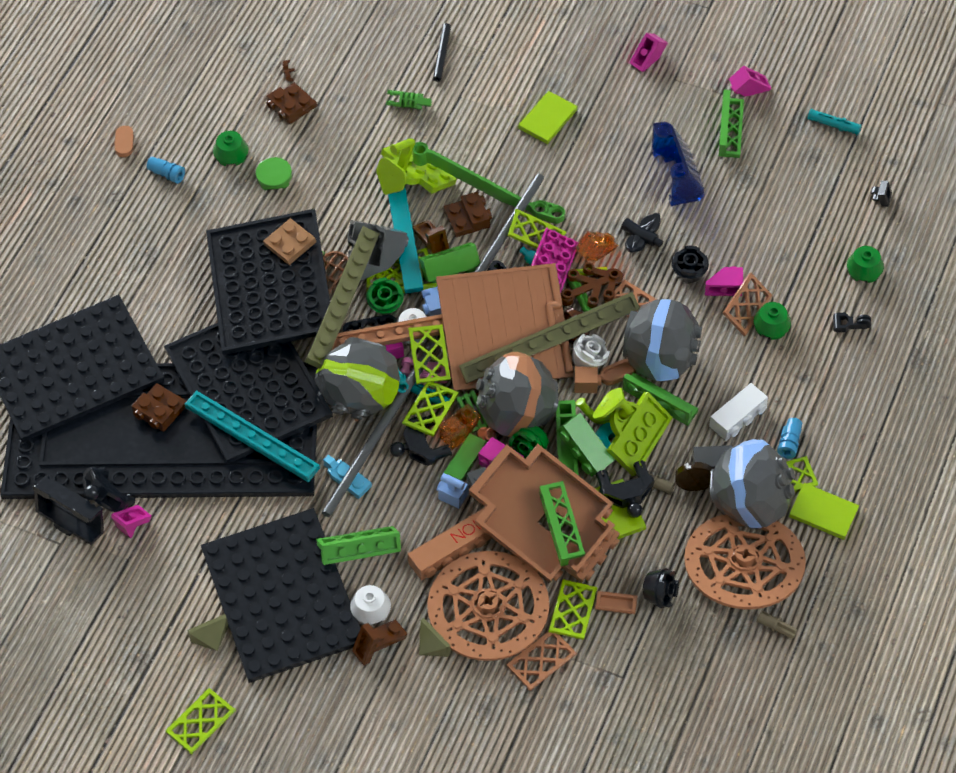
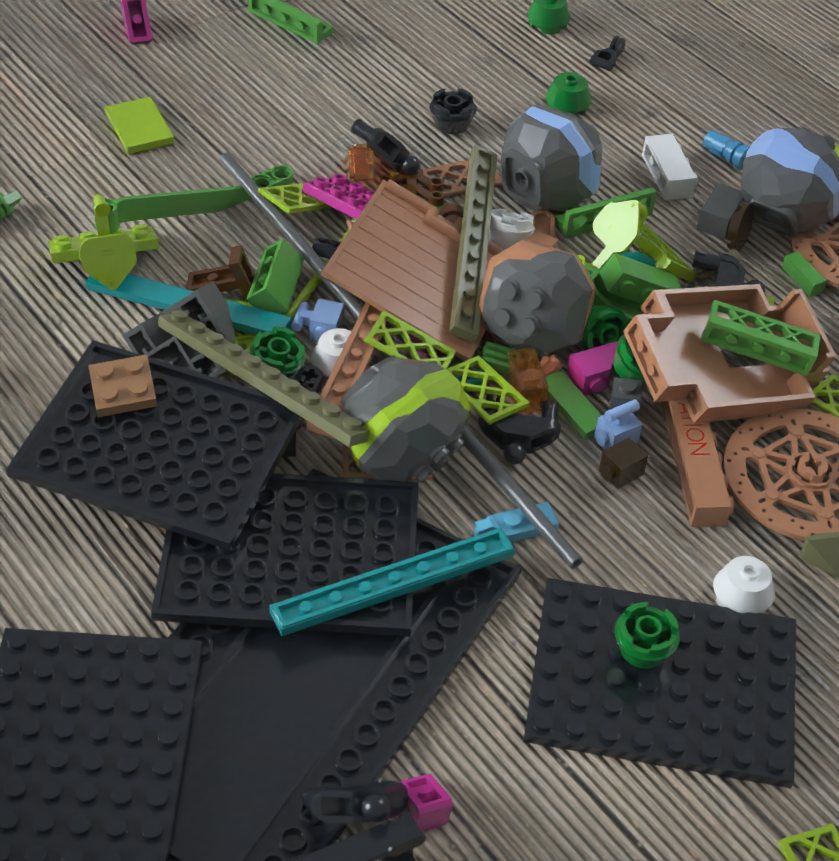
camera: 65 degrees left, 10 degrees down
(158, 407) = (250, 672): reddish brown plate -> none
(209, 633) = (690, 792): olive slope -> none
(285, 564) = (646, 635): none -> green cone
(359, 545) = (651, 550): bright green fence -> none
(373, 640) = (814, 604): reddish brown bracket -> none
(423, 504) = (623, 463): none -> dark brown brick
(468, 214) = (211, 239): reddish brown plate -> none
(529, 255) = (325, 220): teal cylinder -> none
(605, 252) = (387, 148): none -> black connector
(642, 233) = (369, 115): black plant -> none
(682, 538) = (804, 274): none -> bright green piece
(686, 182) = (310, 54): clear blue windscreen -> none
(725, 282) = (494, 101): dark pink slope -> none
(736, 321) = (525, 90): nougat window -> none

